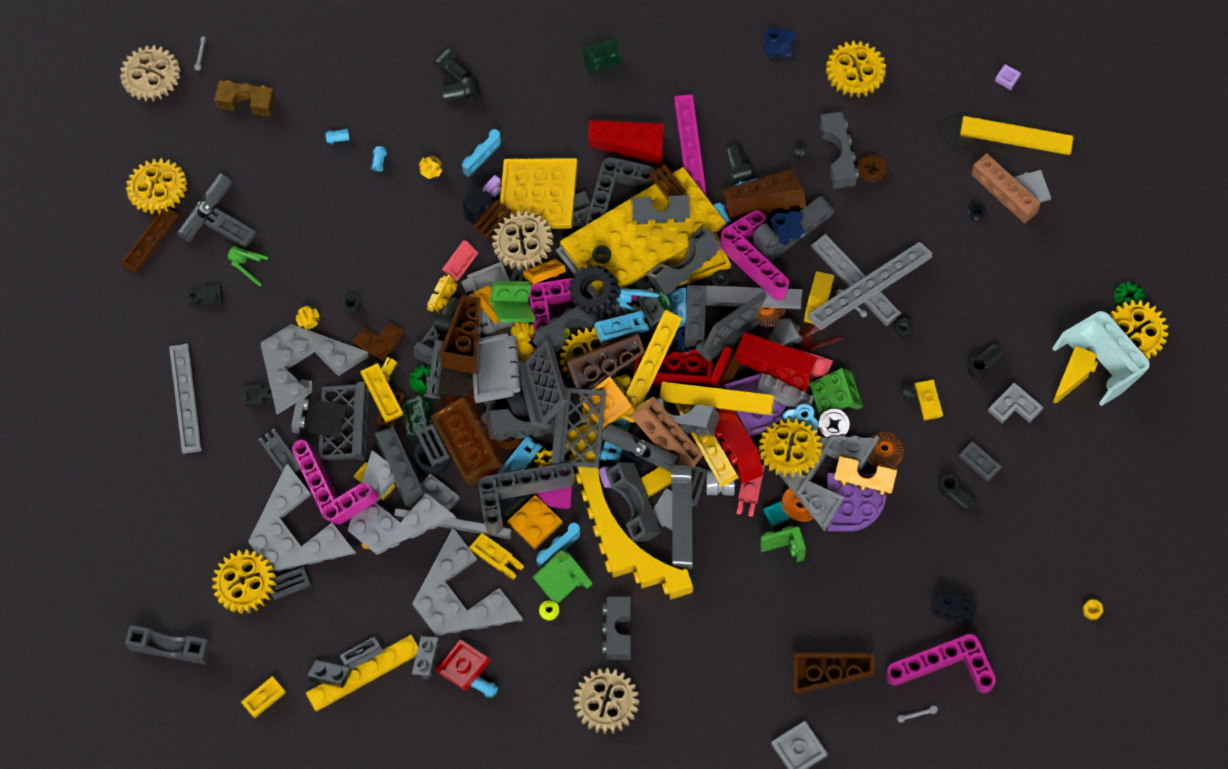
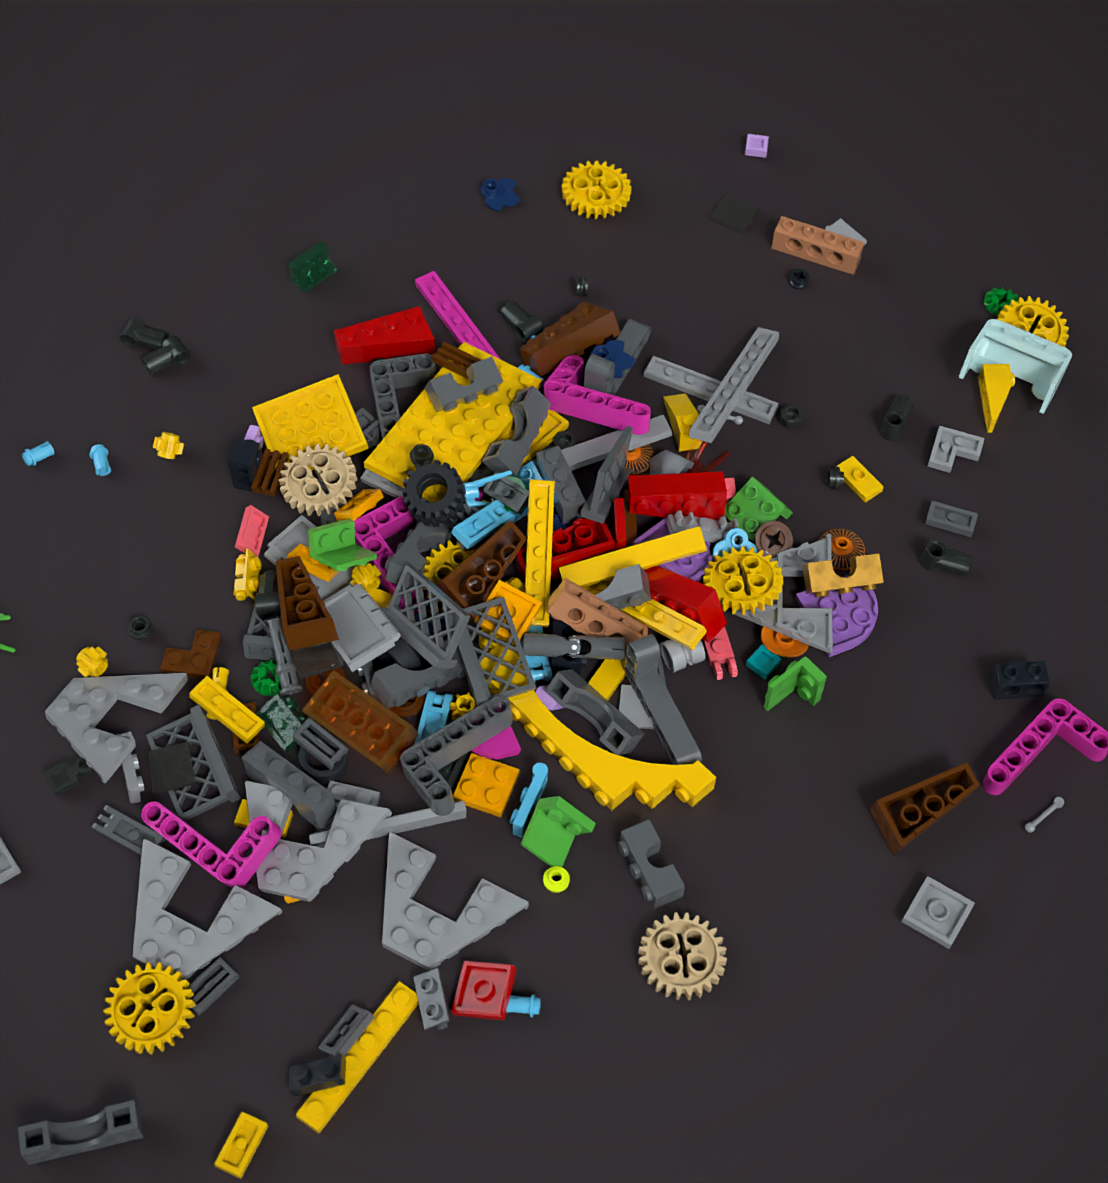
camera: 30 degrees left, 10 degrees down
(481, 153) = (222, 411): medium azure plate -> none
(495, 555) = (458, 842): yellow hinge -> none
(833, 129) = (607, 253): dark grey arch -> none
(868, 161) = (674, 273): reddish brown gear -> none
(1016, 135) = (797, 195): yellow tile -> none

